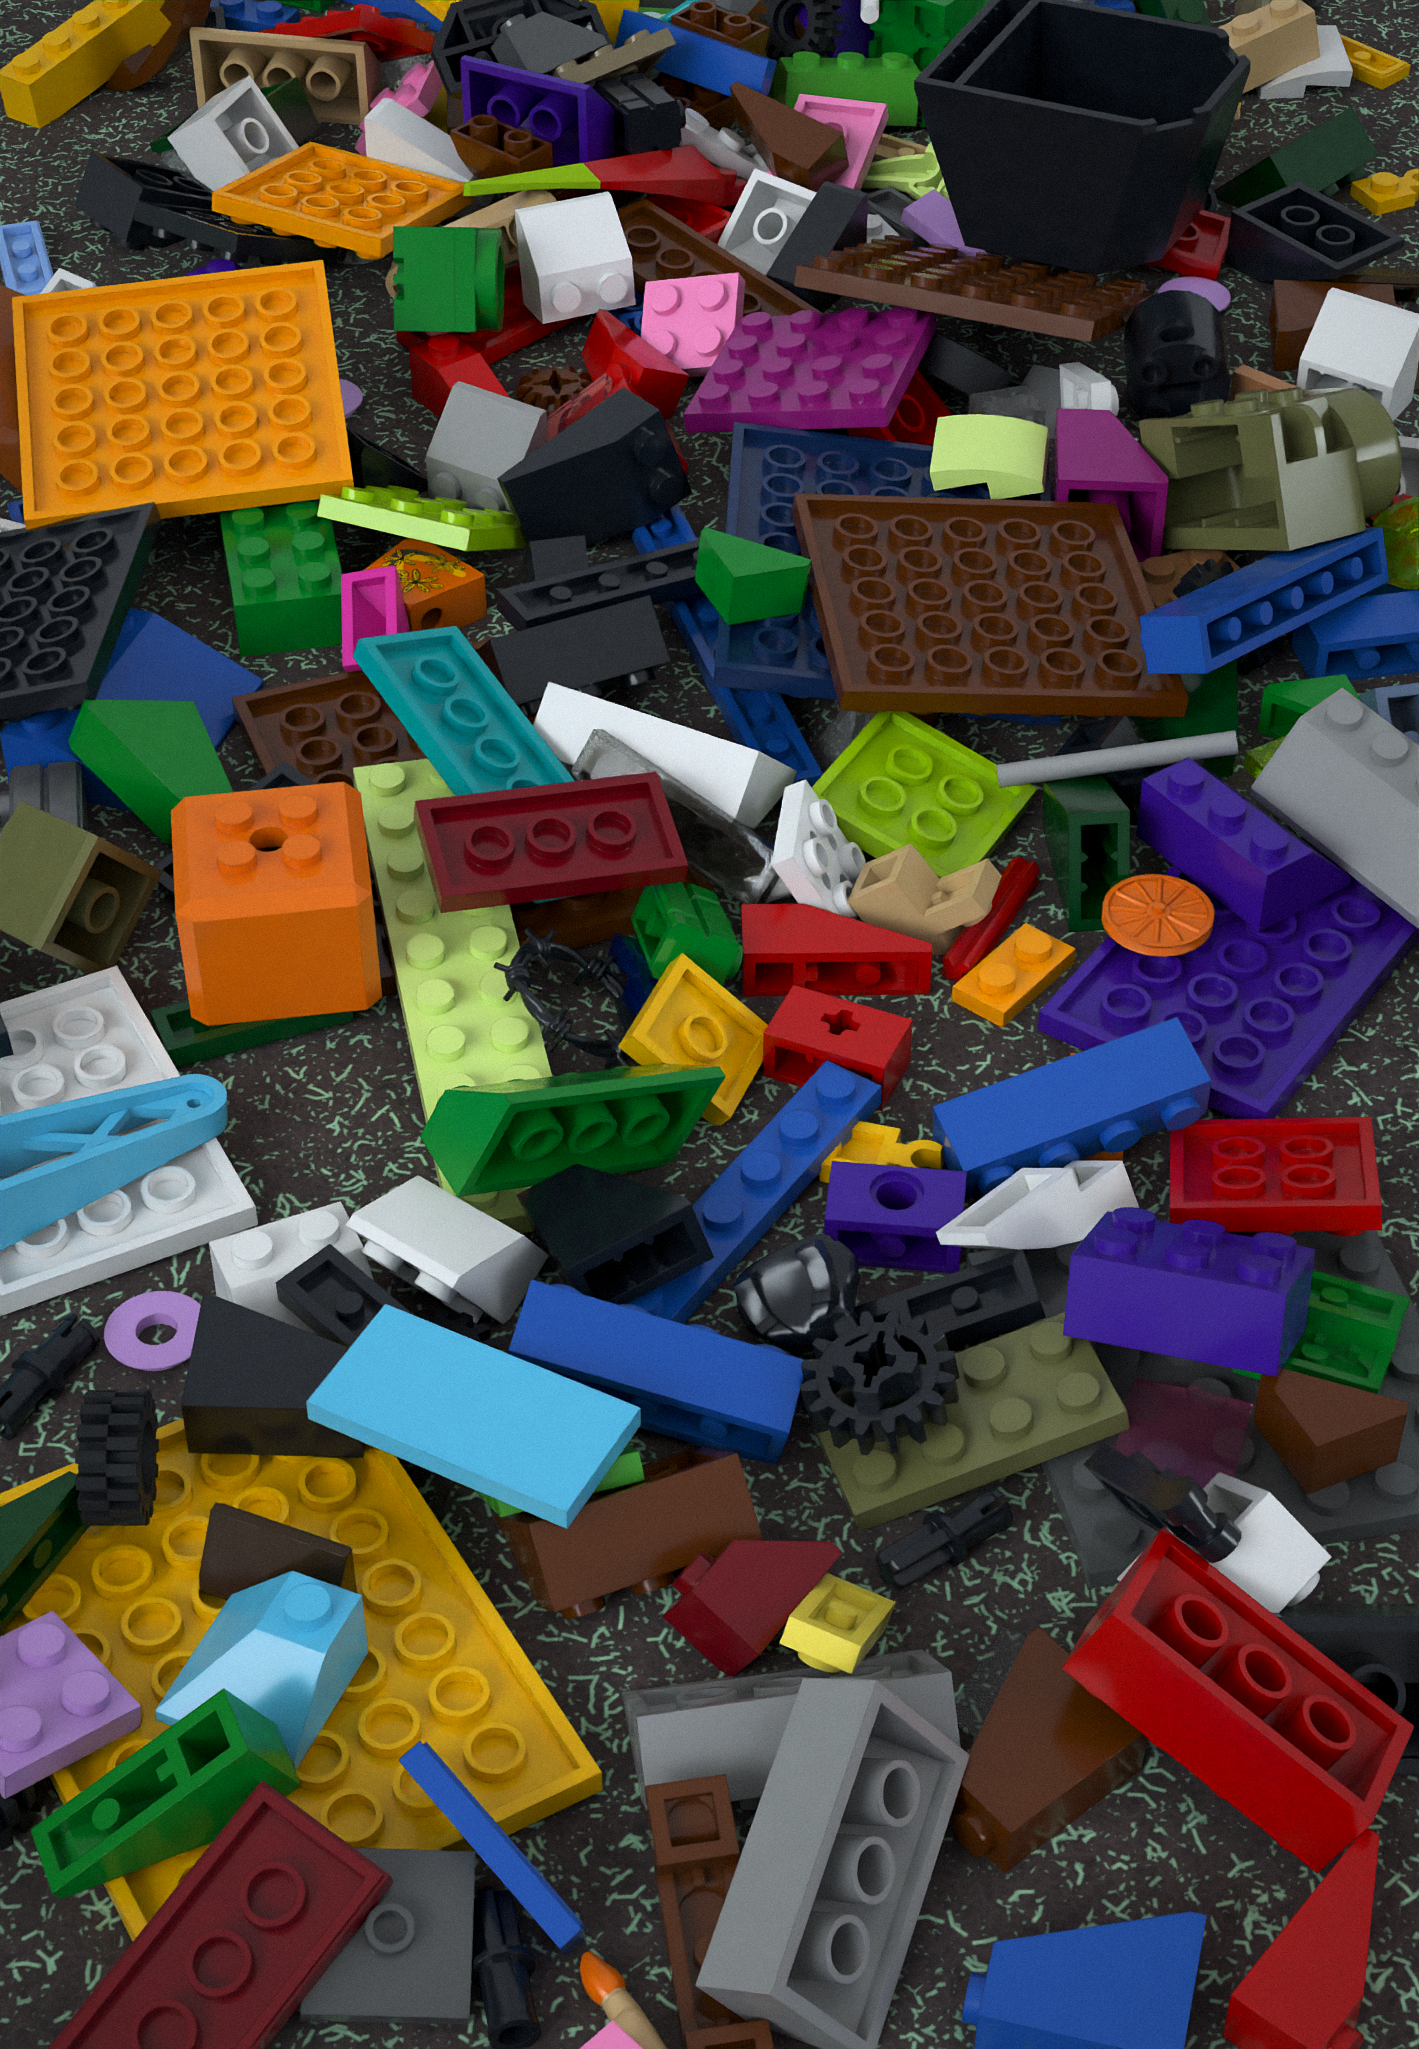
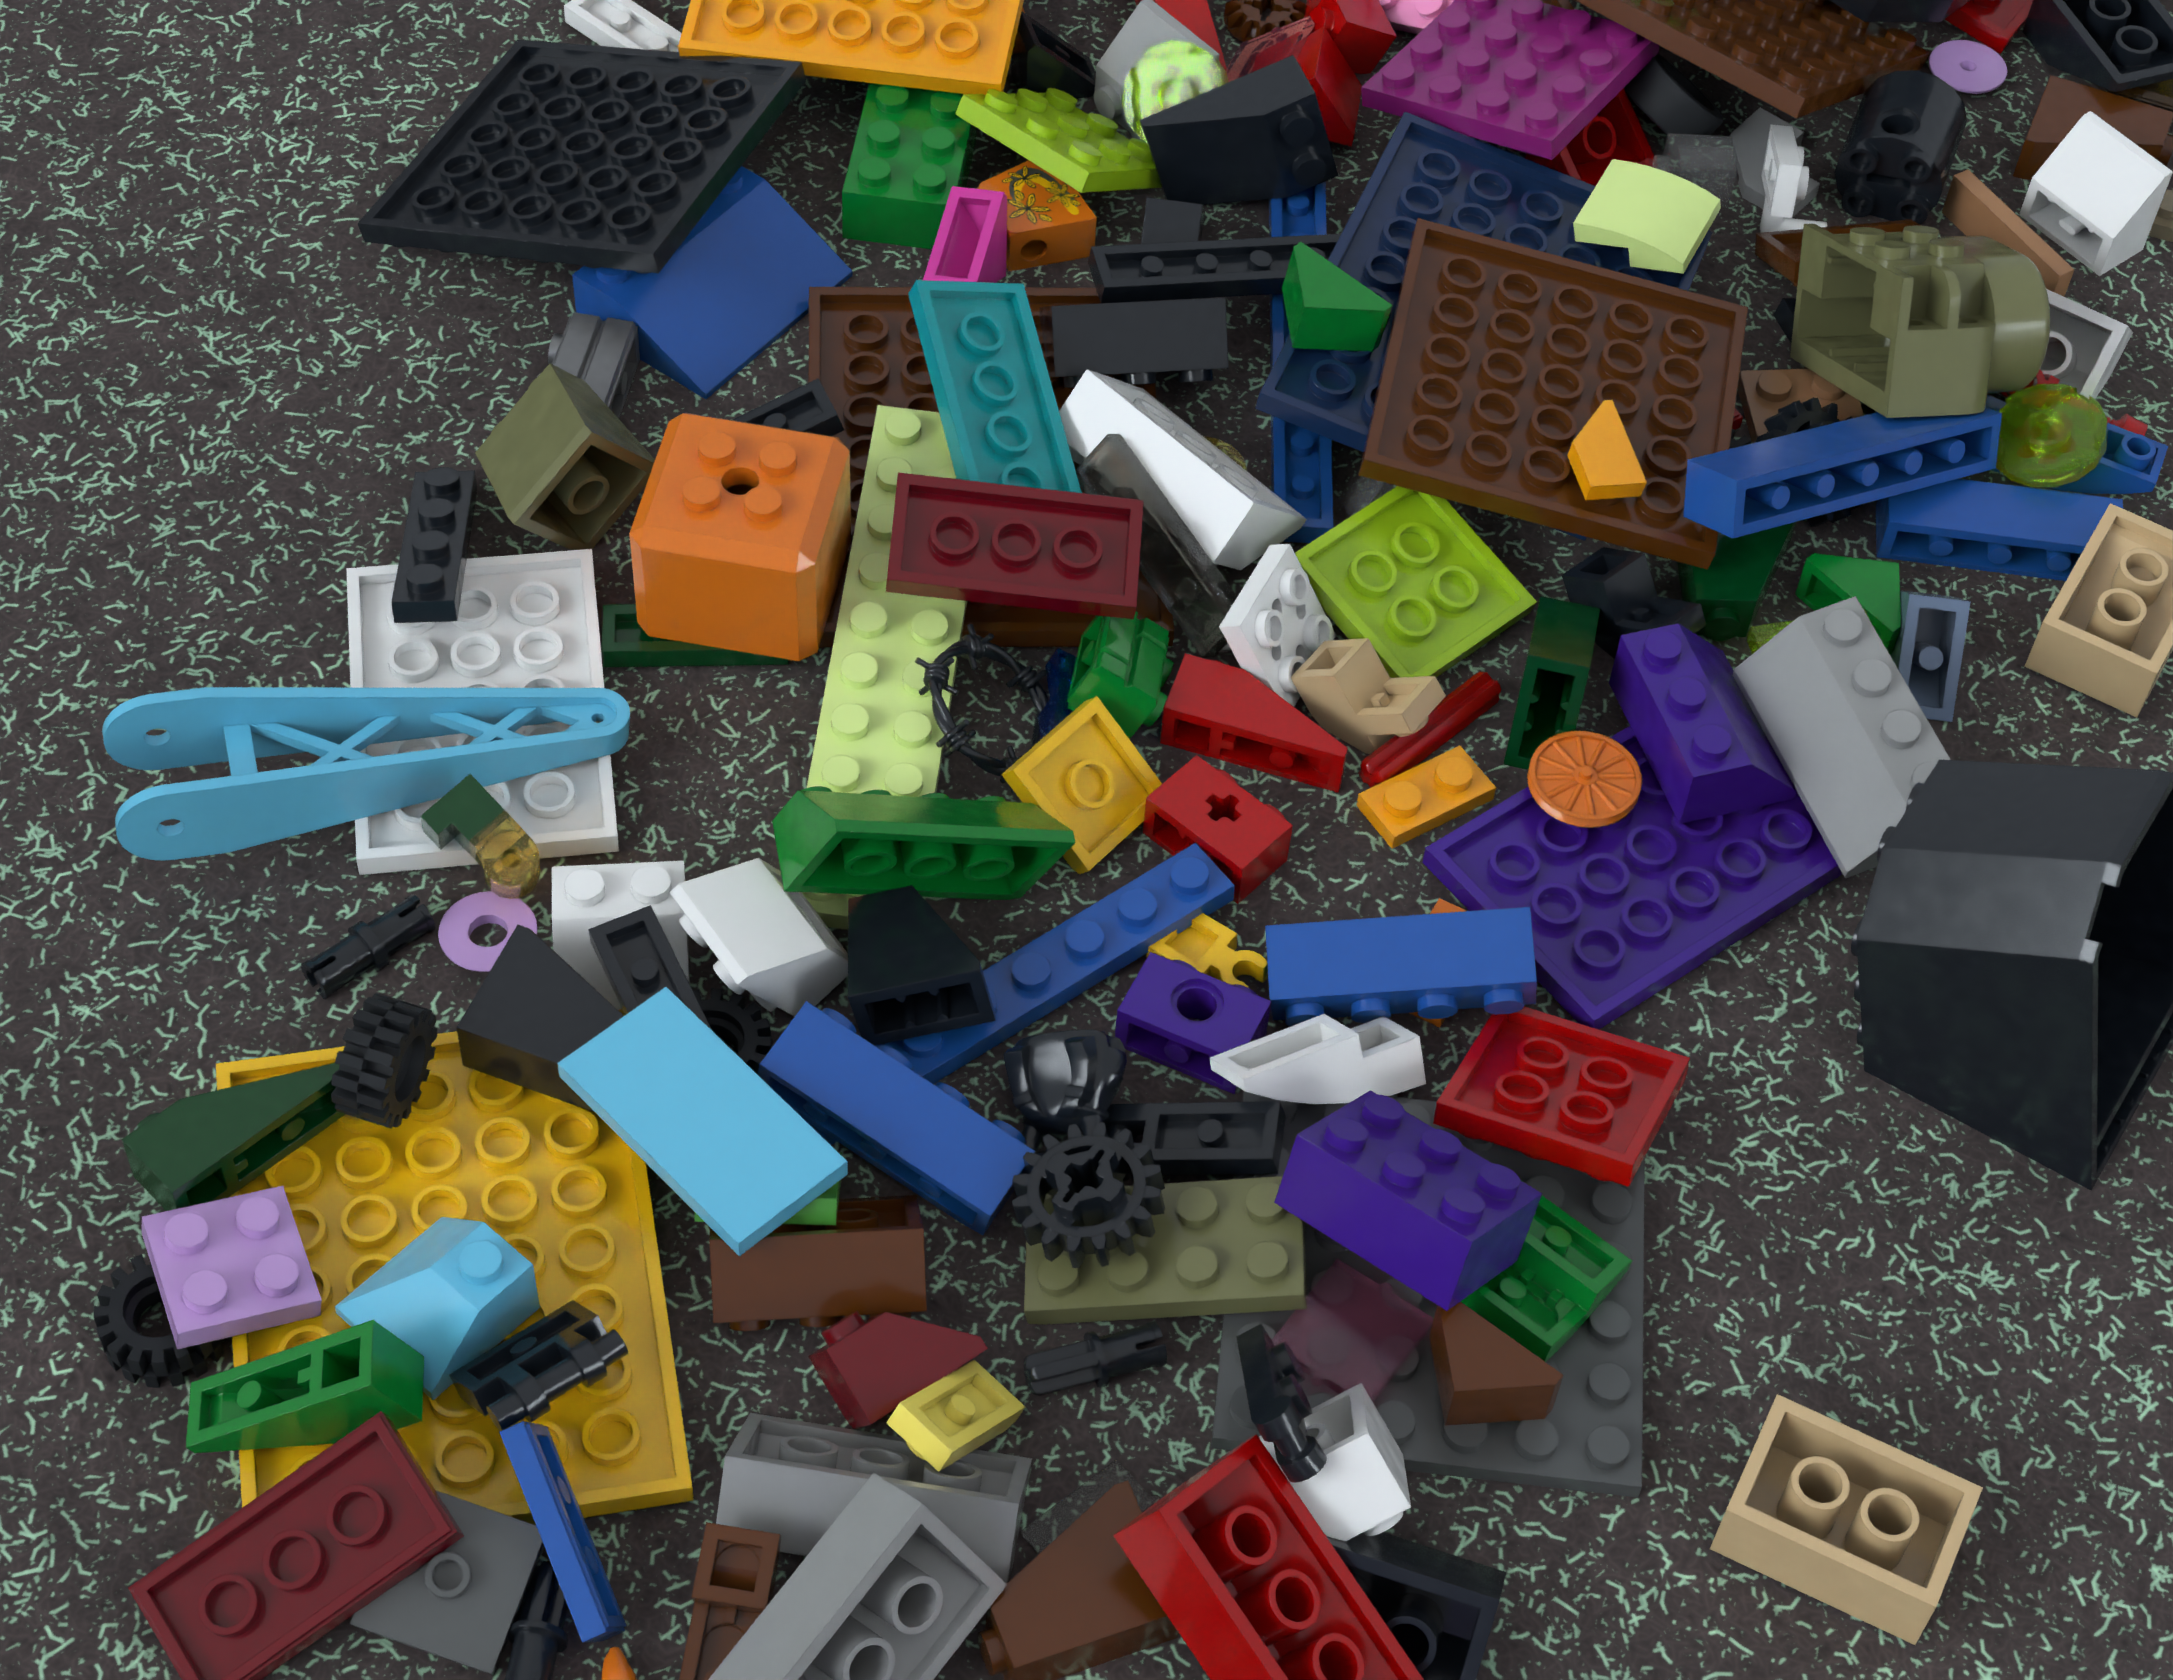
camera: 15 degrees right, 10 degrees up
(129, 1235) = (488, 835): none -> leg
(149, 755) = (703, 341): green slope -> none
(251, 1549) = (471, 1189): dark brown slope -> none
(402, 1695) = (539, 1366): none -> black plate
(501, 442) = (1168, 77): none -> clear neon green tile
(1059, 642) = (1605, 458): none -> light orange tile
(1105, 464) = (1756, 265): magenta slope -> none
(1117, 759) = (1615, 600): light grey bar -> none

